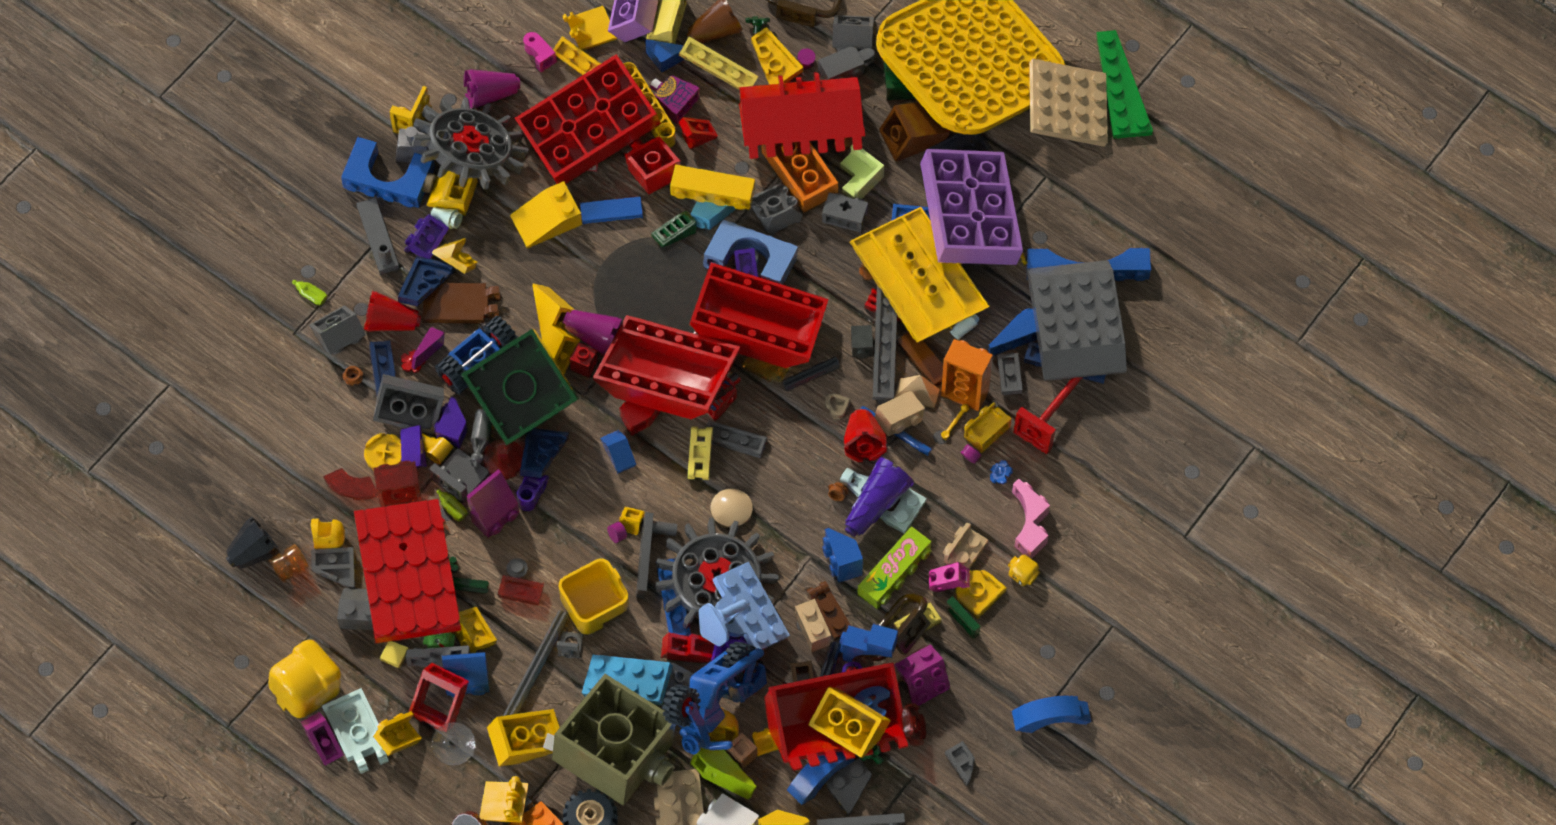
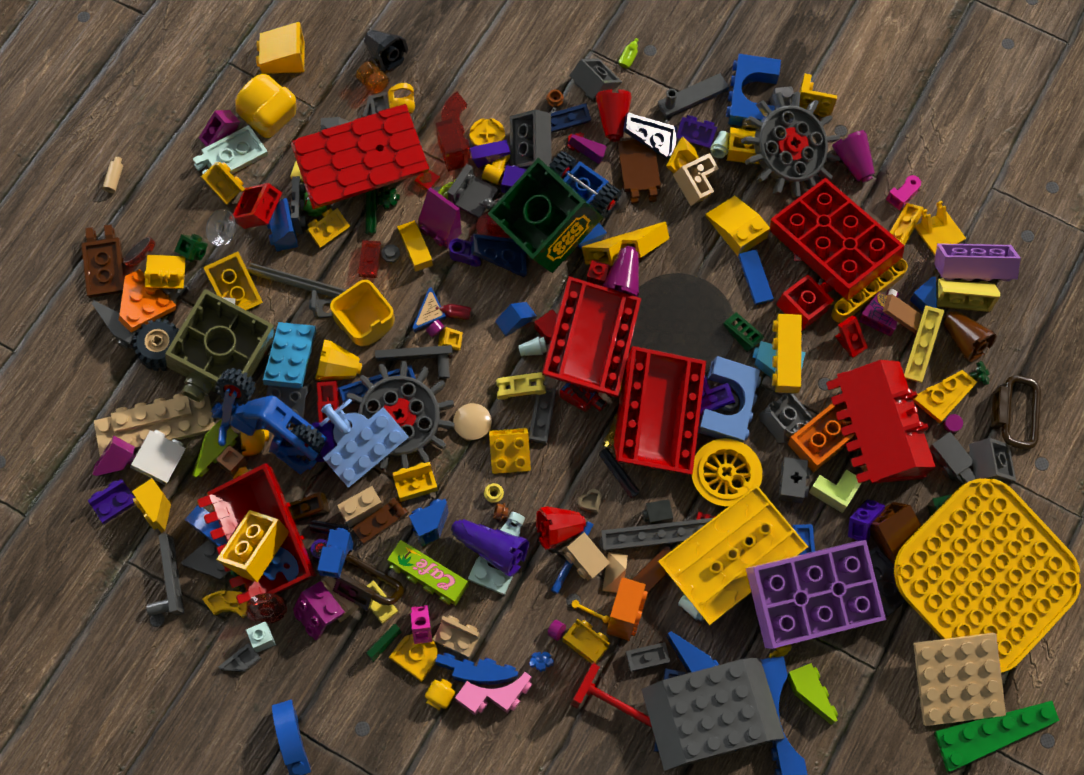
camera: 80 degrees right, 5 degrees up
(231, 657) = (281, 50): none -> yellow slope
(481, 778) = (191, 247): none -> dark green brick
(486, 246) = (693, 178): none -> tan brick
(512, 540) = (415, 246): none -> yellow slope
(594, 535) = (427, 312): none -> tile
(599, 509) = (456, 311): none -> dark red piece
(643, 635) = (337, 363): none -> yellow cone
(656, 434) = (533, 347): none -> light aqua cone
(683, 75) = (902, 313): none -> medium nougat tile
(769, 472) = (509, 450): none -> yellow bracket
(793, 569) = (415, 481): none -> yellow bracket
(815, 490) = (493, 487): none -> light yellow plate
(841, 252) = (726, 447): none -> yellow piece
(896, 769) = (224, 602): none -> yellow tile
(897, 154) = (861, 520): none -> dark purple bracket
(941, 736) = (260, 637): none -> light aqua brick
(1005, 532) = (485, 673): none -> blue slope
(1063, 233) = (808, 688): none -> lime slope

